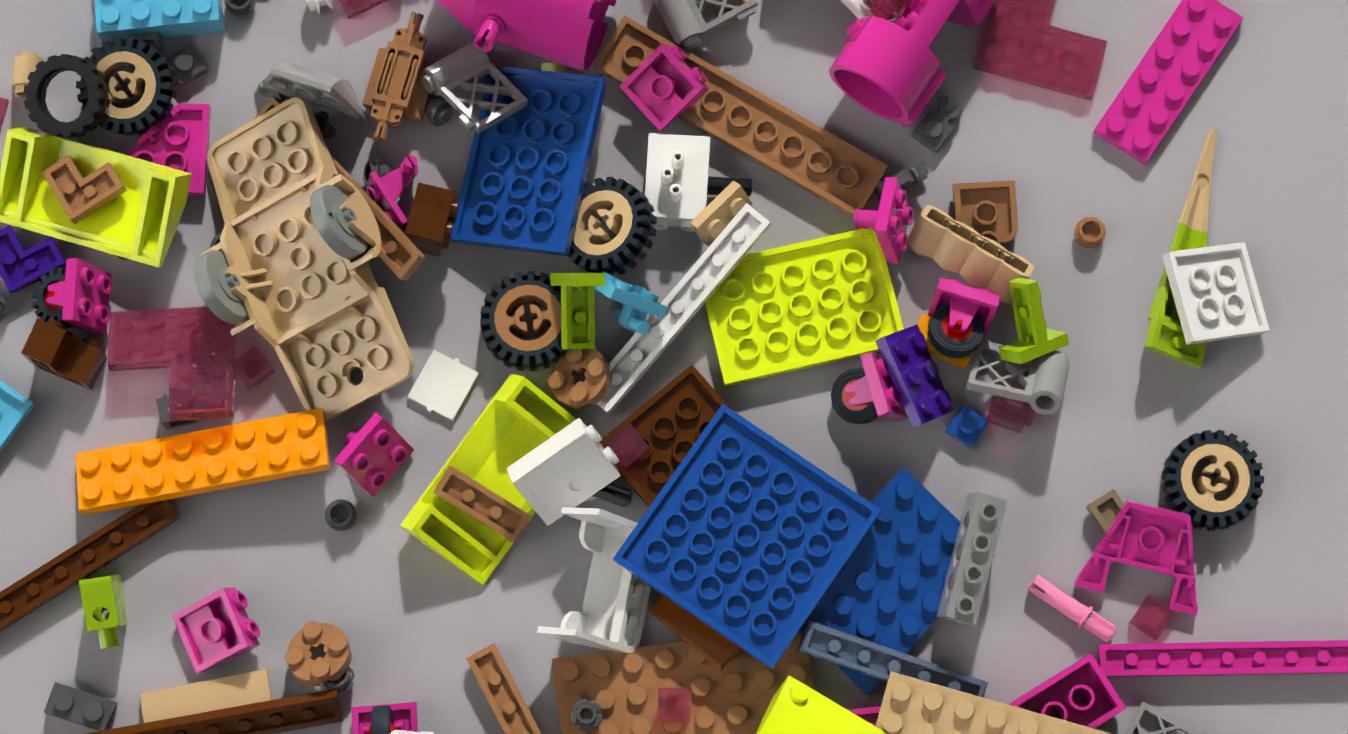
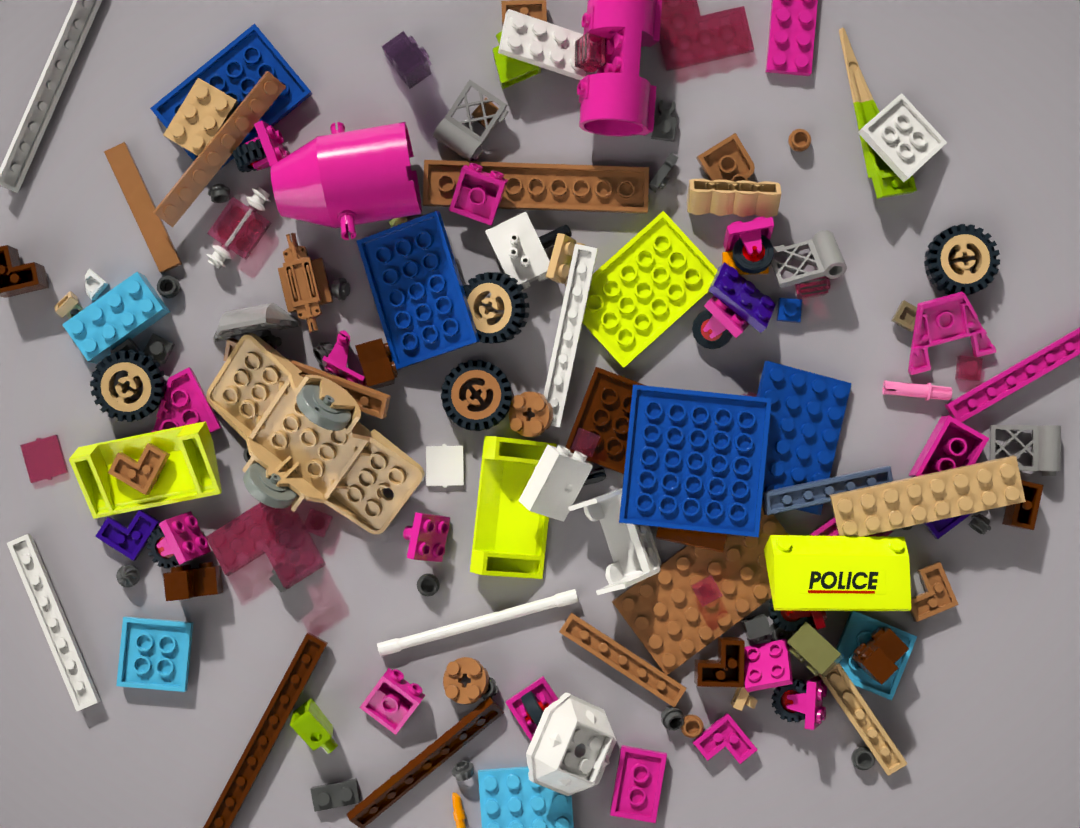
camera: 25 degrees left, 10 degrees up
(21, 69) = (59, 412): tan brick -> none
(36, 96) = (74, 425): black tyre -> none
(202, 461) = (321, 601): light orange plate -> none
(206, 696) = (410, 745): tan tile -> none
(263, 567) = (398, 644): none -> white piece
(458, 73) = (338, 259): light grey piece -> none
(482, 504) = (514, 530): medium nougat plate -> none
(577, 307) = (504, 371): lime bracket -> none
(578, 718) = (656, 633): dark grey plate -> none
(636, 302) = (534, 349): medium azure plate -> none
(889, 221) = (671, 204): dark pink plate -> none
(971, 558) = (842, 396): light grey brick -> none
(1030, 325) = (804, 229): lime bracket -> none

